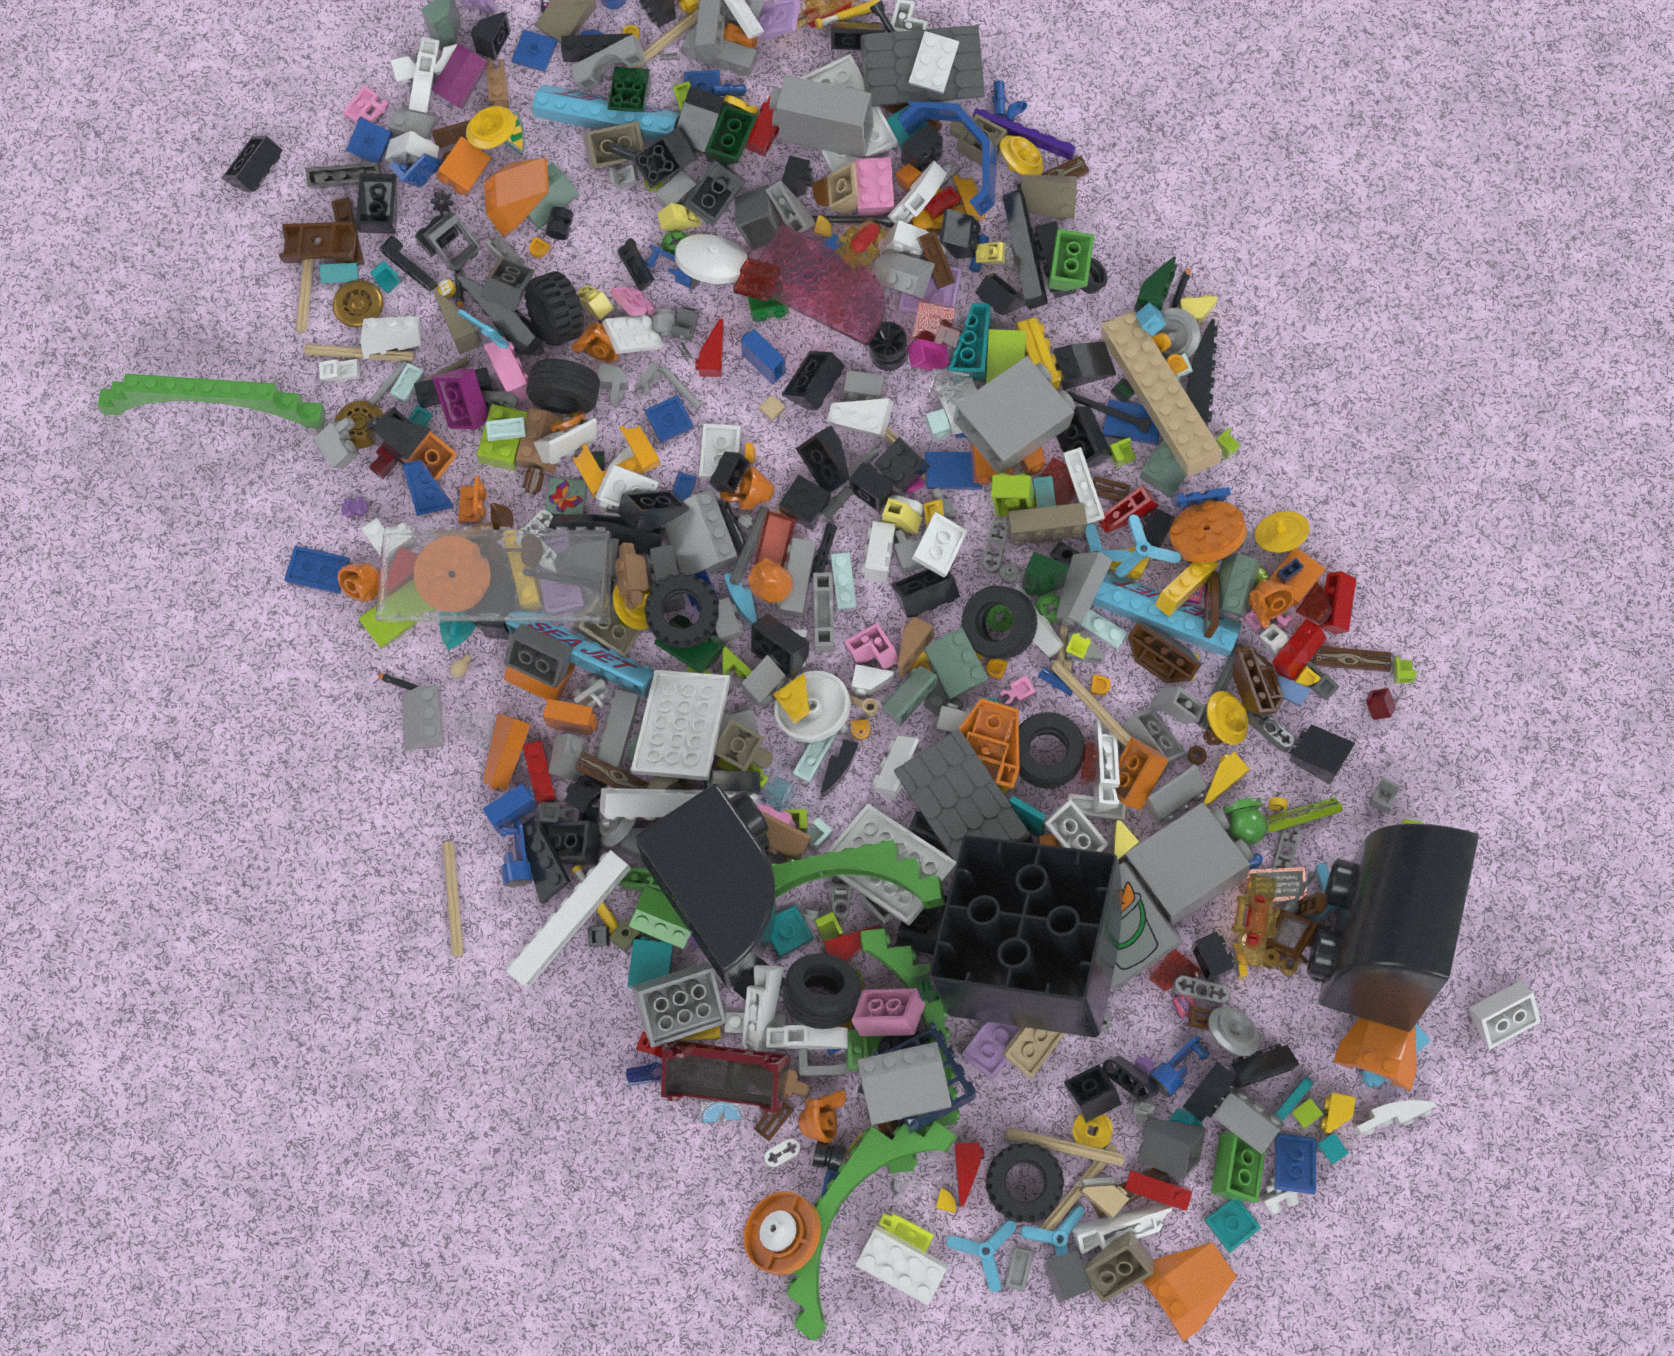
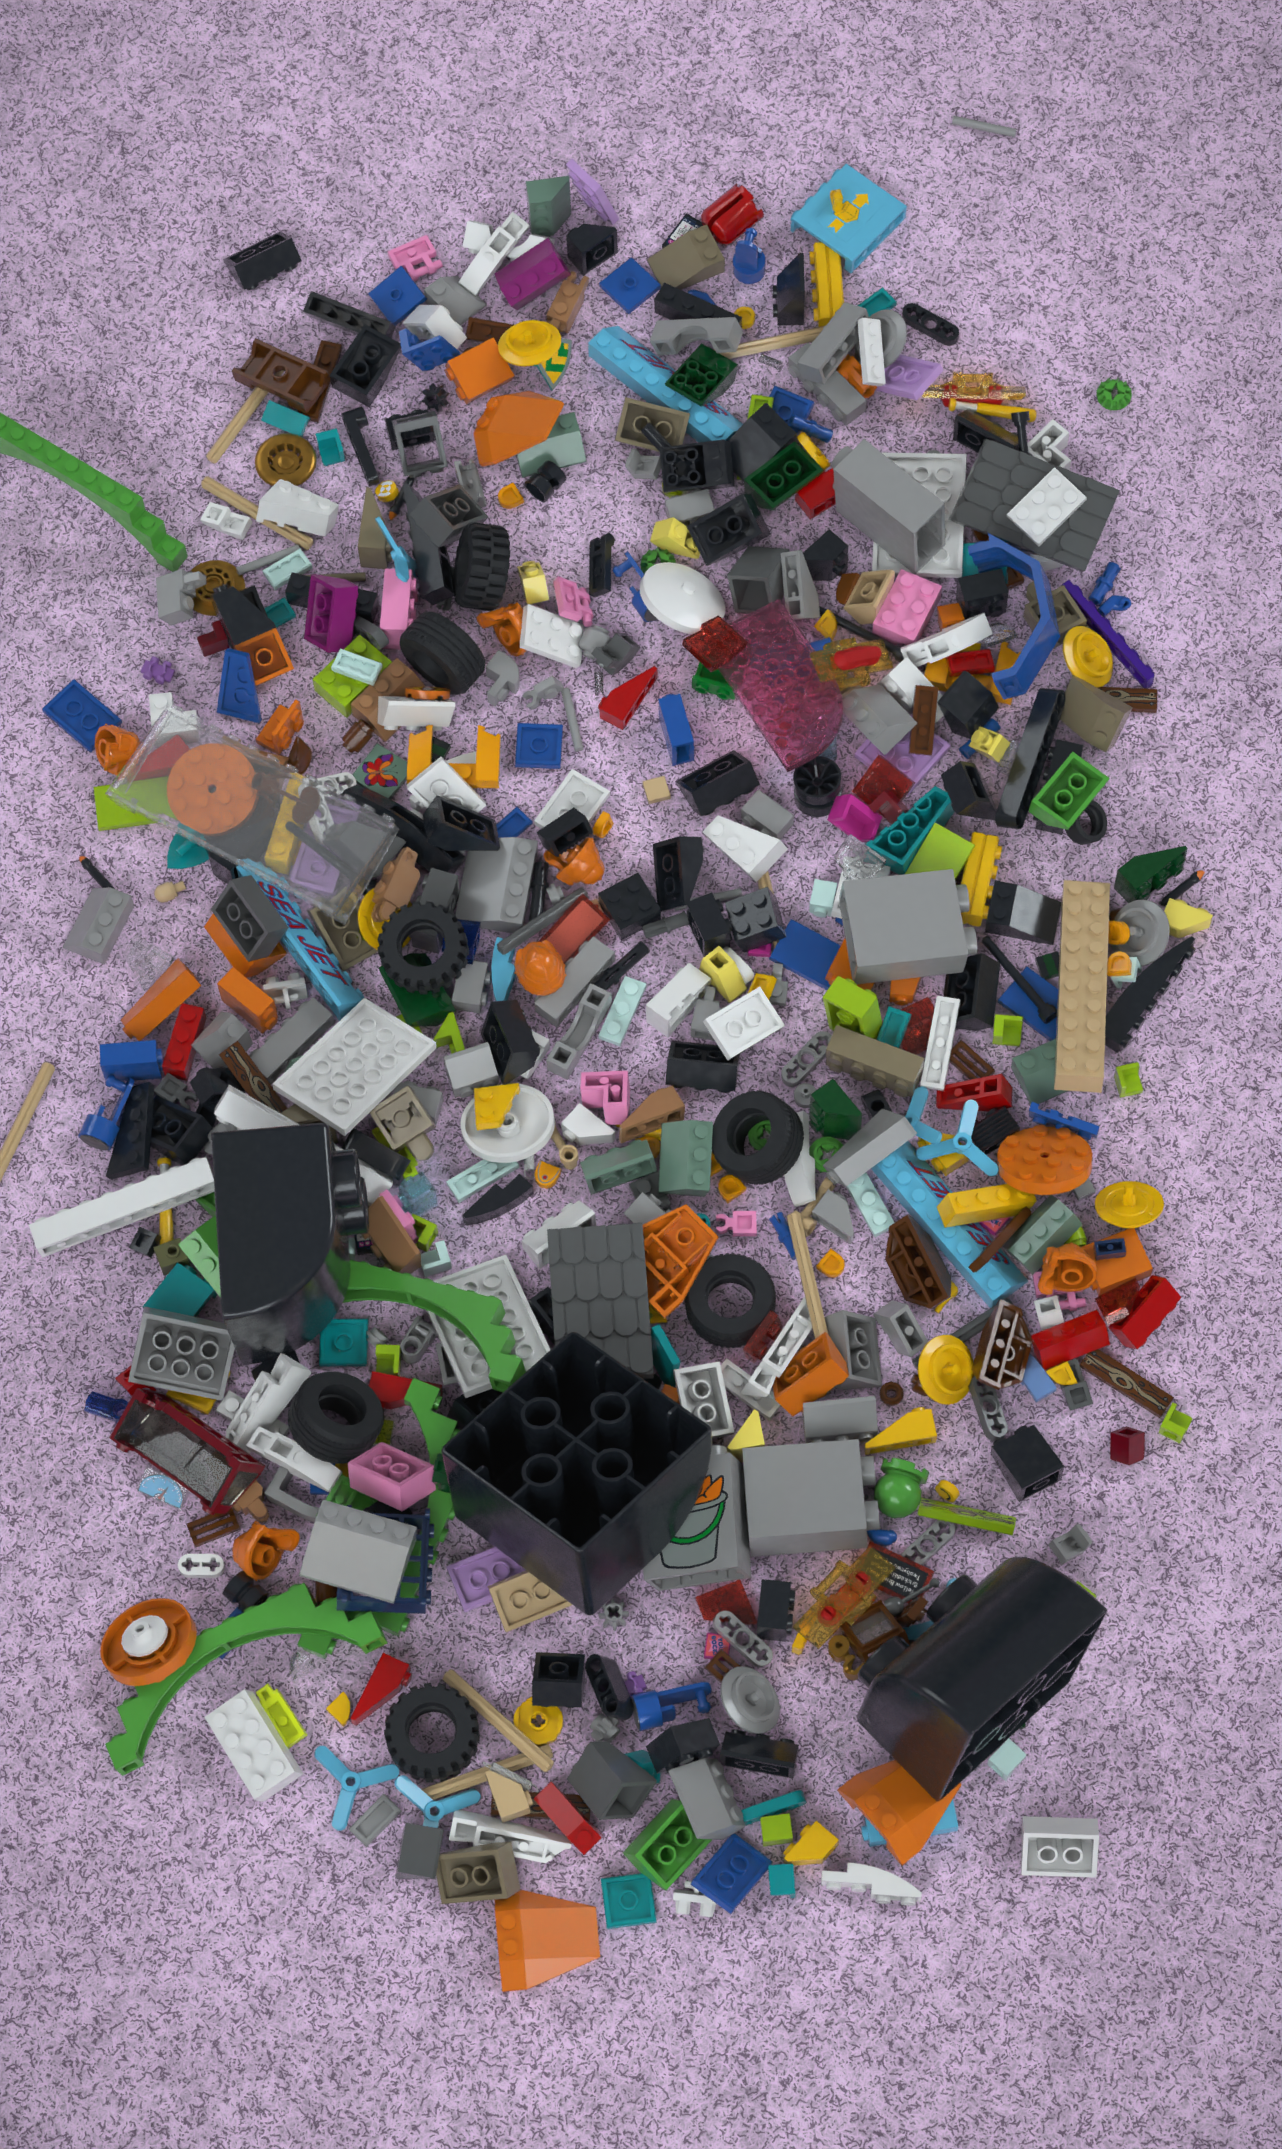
camera: 30 degrees right, 5 degrees down
(1078, 645) = (828, 1206): neon yellow tile -> none
(1150, 319) = (1120, 901): medium azure brick -> none

